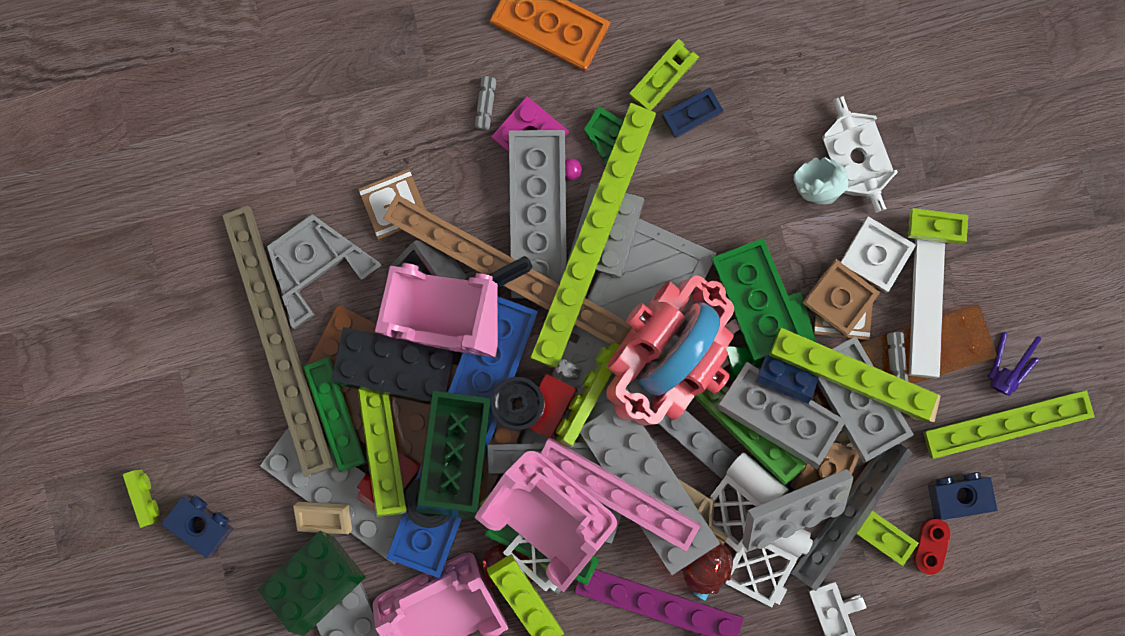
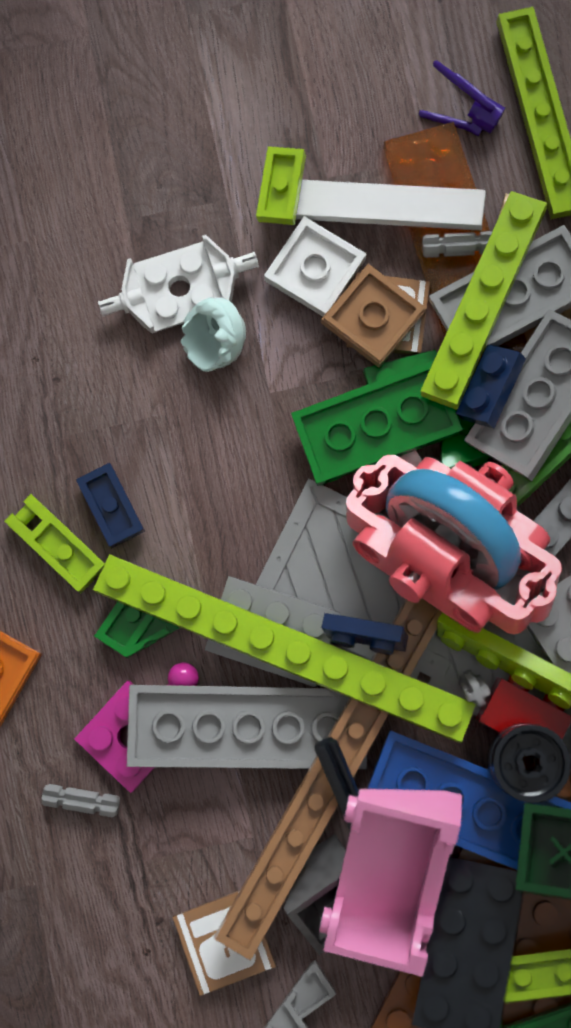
camera: 85 degrees left, 5 degrees down
(602, 301) = (380, 636): none -> dark blue plate

